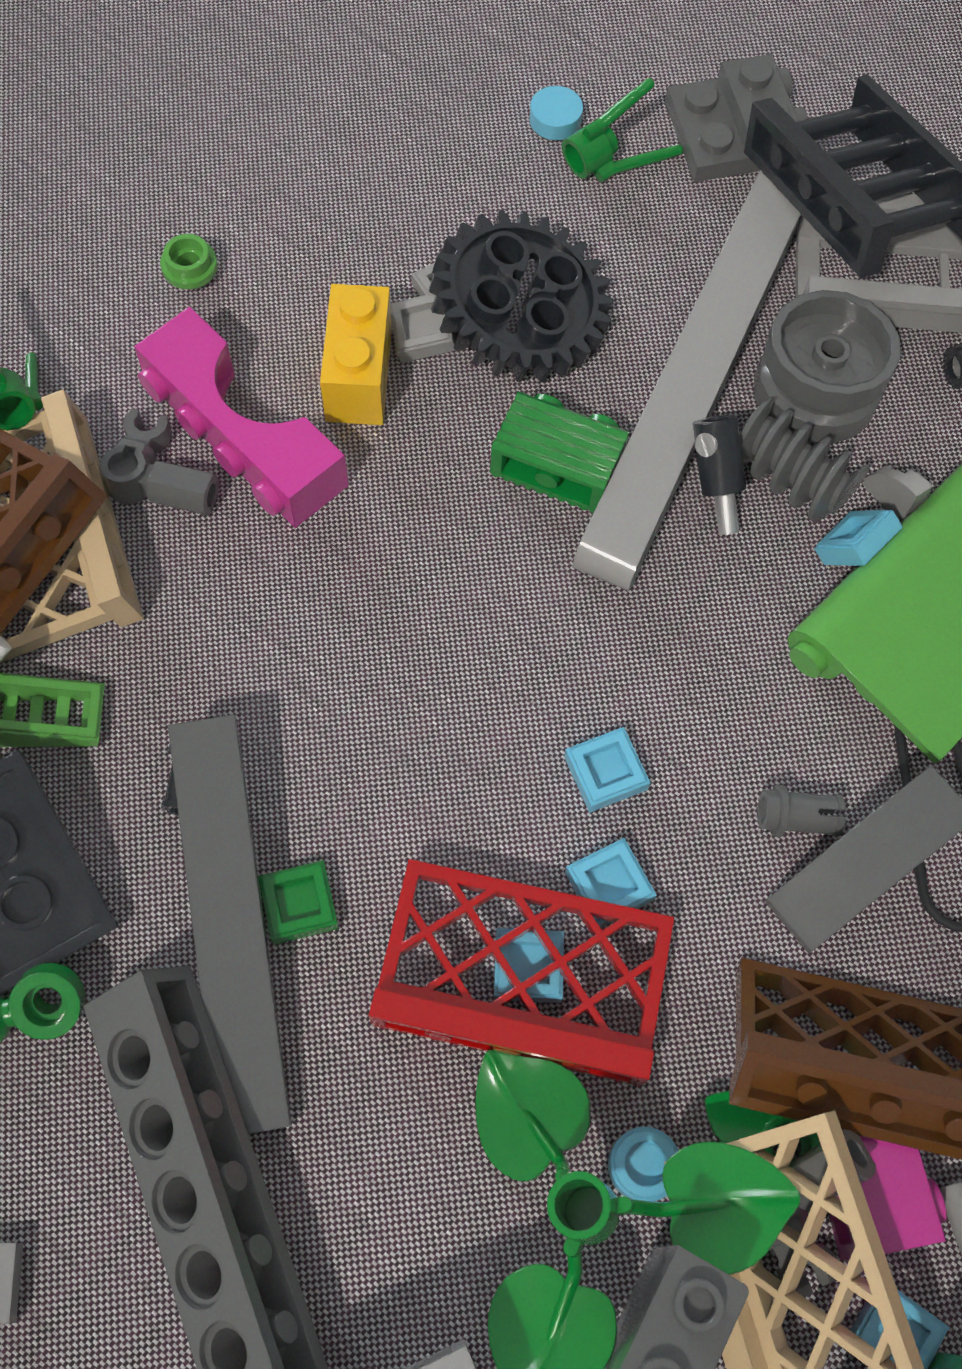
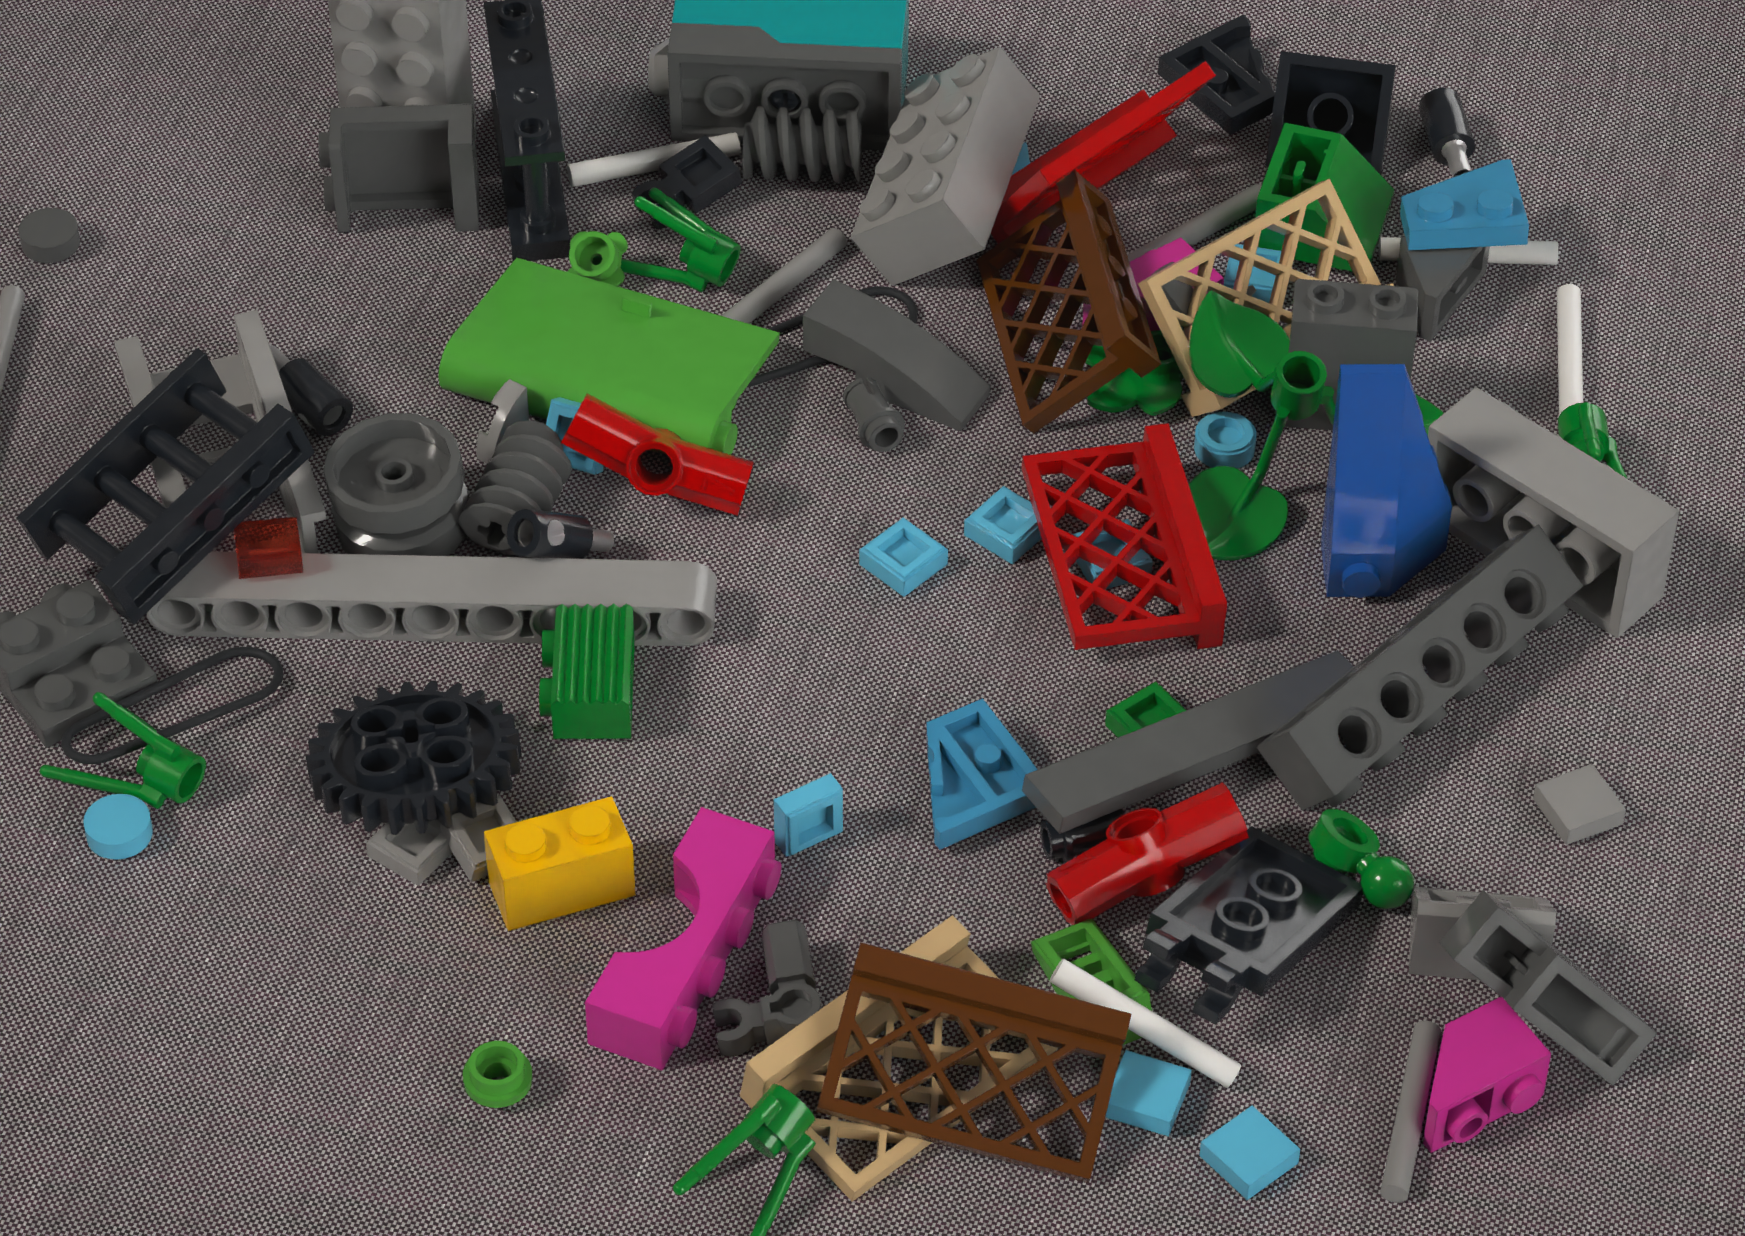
camera: 110 degrees left, 20 degrees down
(115, 835) = (1146, 853): none -> red piece
(303, 713) = (973, 773): none -> dark azure wing
(317, 553) = (808, 815): none -> medium azure tile
(405, 1240) = (1384, 486): none -> blue wedge
(689, 175) = (181, 726): none -> black piece
(780, 243) = (268, 547): none -> clear red tile
(791, 579) = (697, 471): none -> red piece

